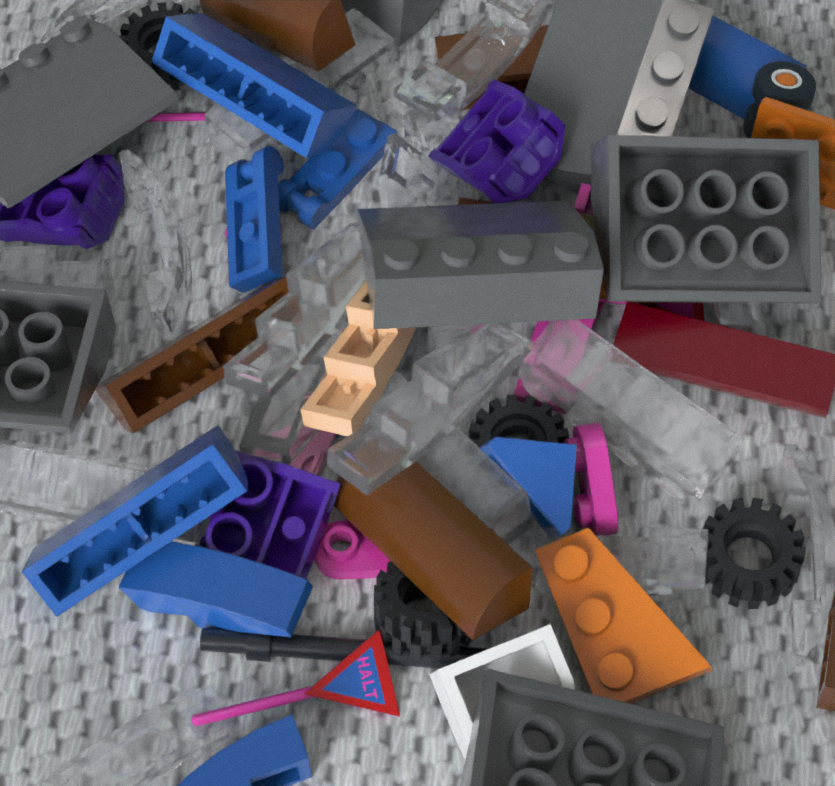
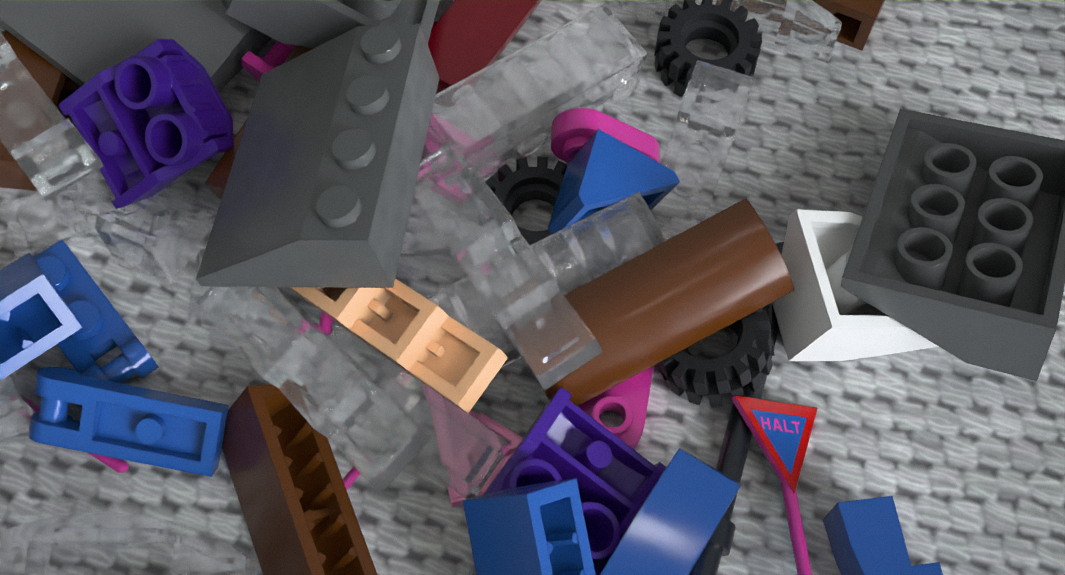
camera: 80 degrees left, 5 degrees up
(613, 624) = (774, 168): orange wing -> none

